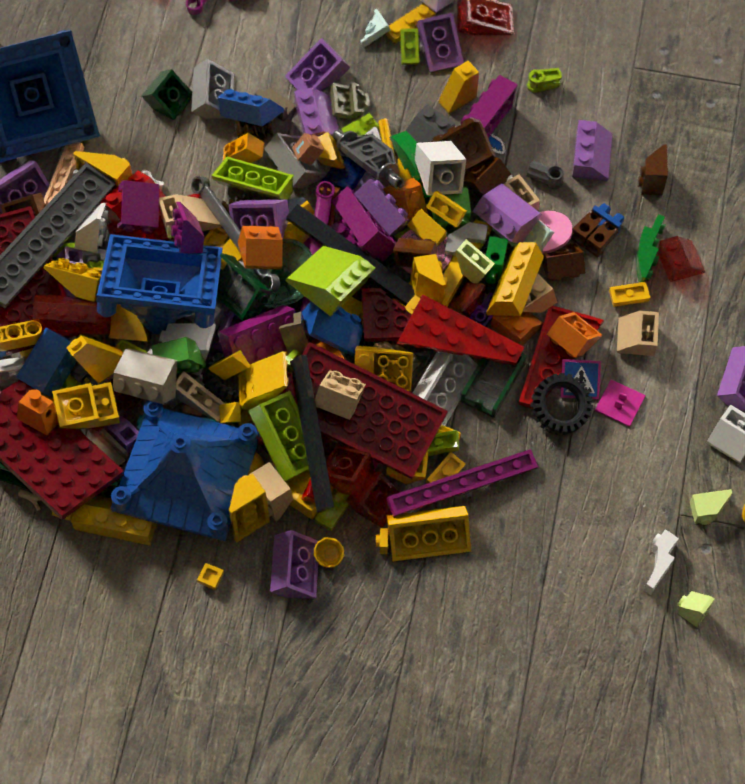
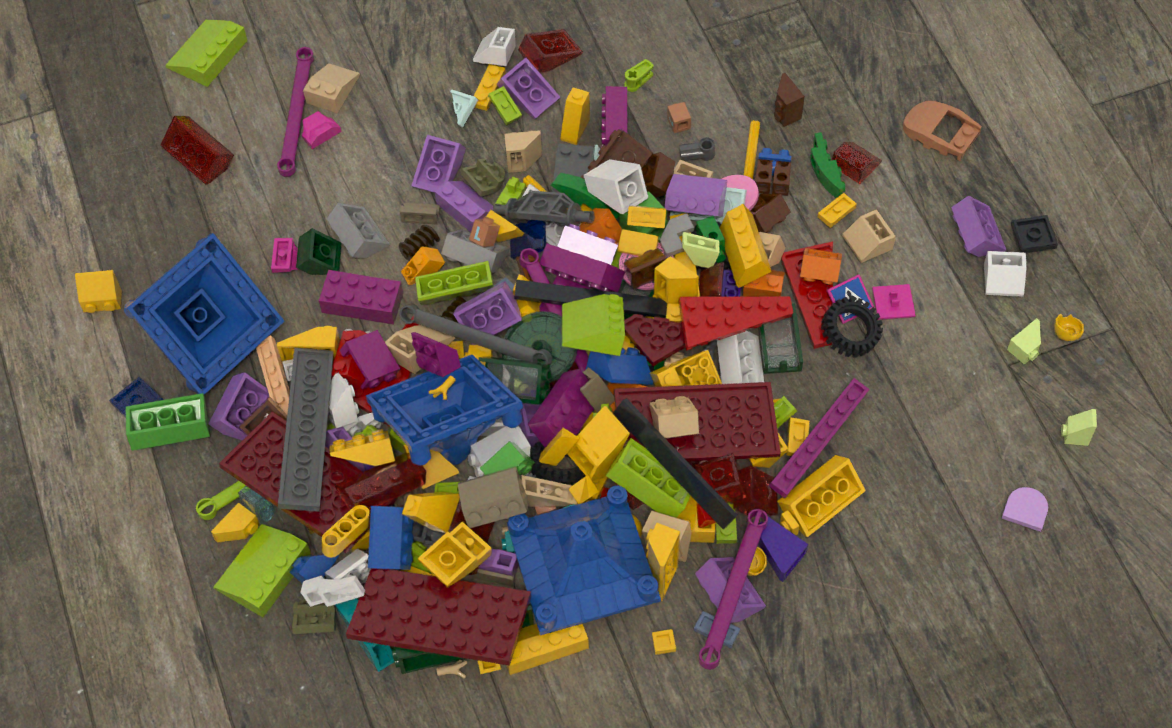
camera: 30 degrees left, 5 degrees down
(37, 412) = (418, 583): orange torso -> none
(139, 80) = (284, 255): none -> dark pink slope
(174, 263) = (443, 388): none -> yellow bar
(175, 149) = (361, 297): none -> magenta brick
(248, 107) = (404, 225): blue slope -> none
(260, 591) = (704, 625): none -> sand blue tile
(261, 247) = (513, 332): orange slope -> none
(289, 566) = (733, 589): none -> magenta piece
(361, 556) = (781, 548): none -> dark purple slope
(393, 94) = (522, 150): none -> tan slope
(551, 136) = (679, 117): none -> nougat brick
(592, 151) = (719, 113): medium lavender slope -> none
(596, 198) = (752, 149): none -> yellow axle
(598, 648) = (1026, 508): none -> lavender tile
(663, 560) = (1024, 406): white slope -> none

